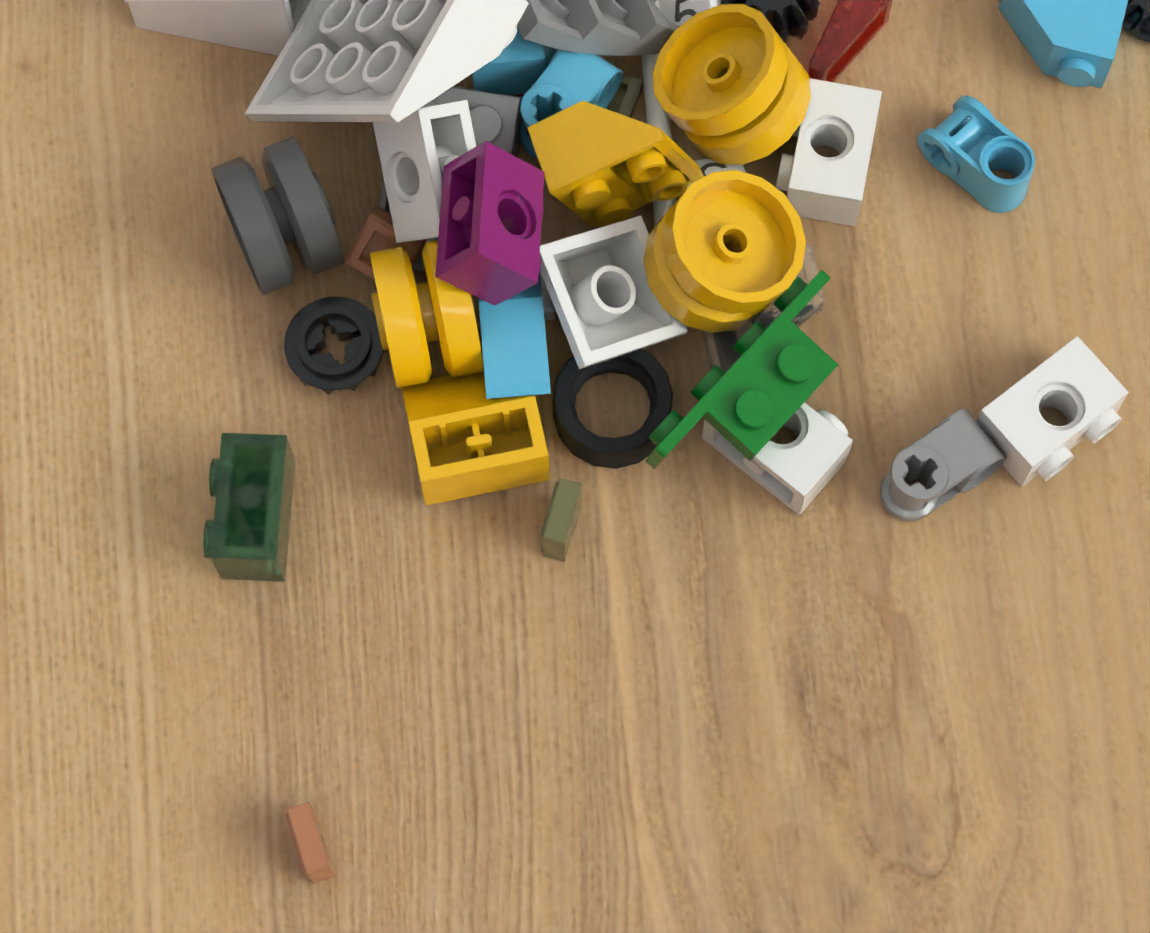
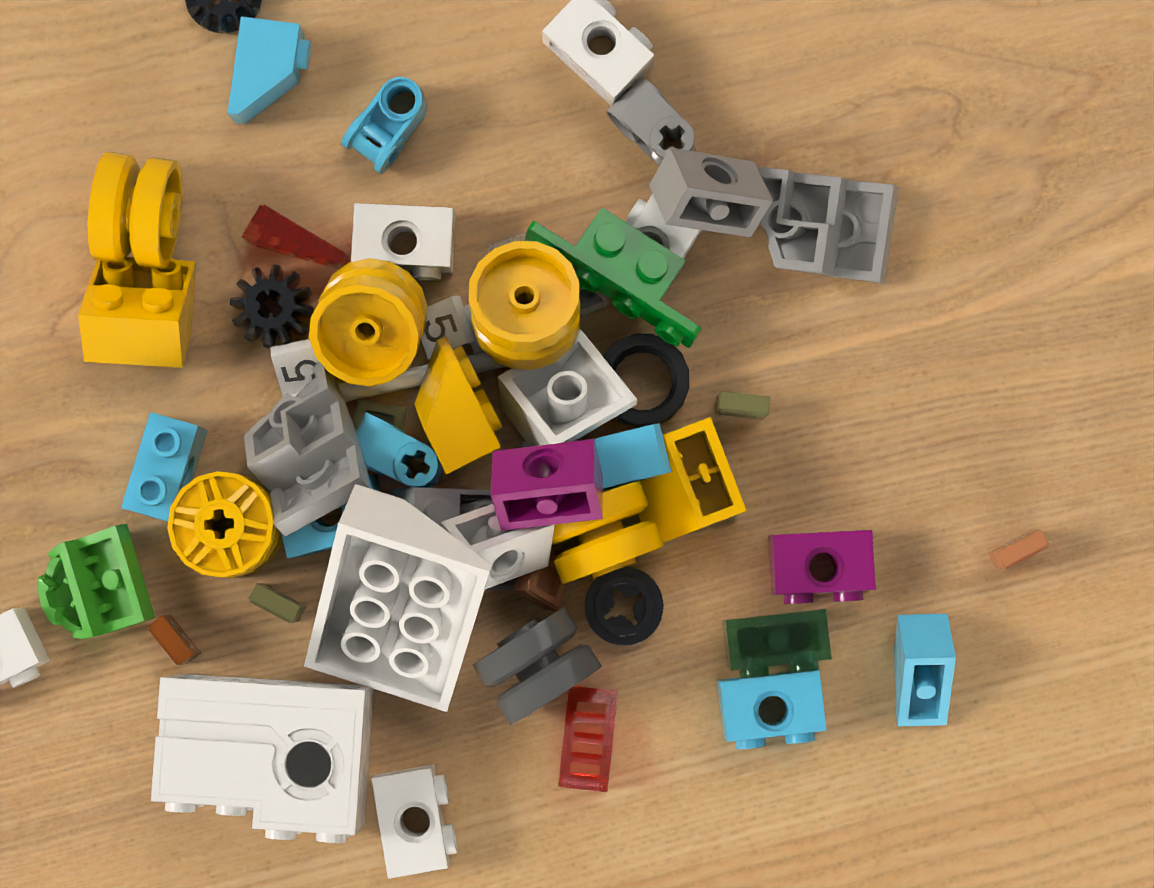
camera: 100 degrees left, 15 degrees up
(100, 48) = (405, 850): none -> white brick
(158, 460) = (802, 701): none -> medium azure brick
(162, 252) = (584, 780): none -> clear red slope
(179, 691) = (923, 669): none -> medium azure slope
(346, 623) = (852, 559): none -> magenta brick
(784, 666) = (829, 224): none -> light grey slope
(841, 506) = (710, 192): none -> light grey brick

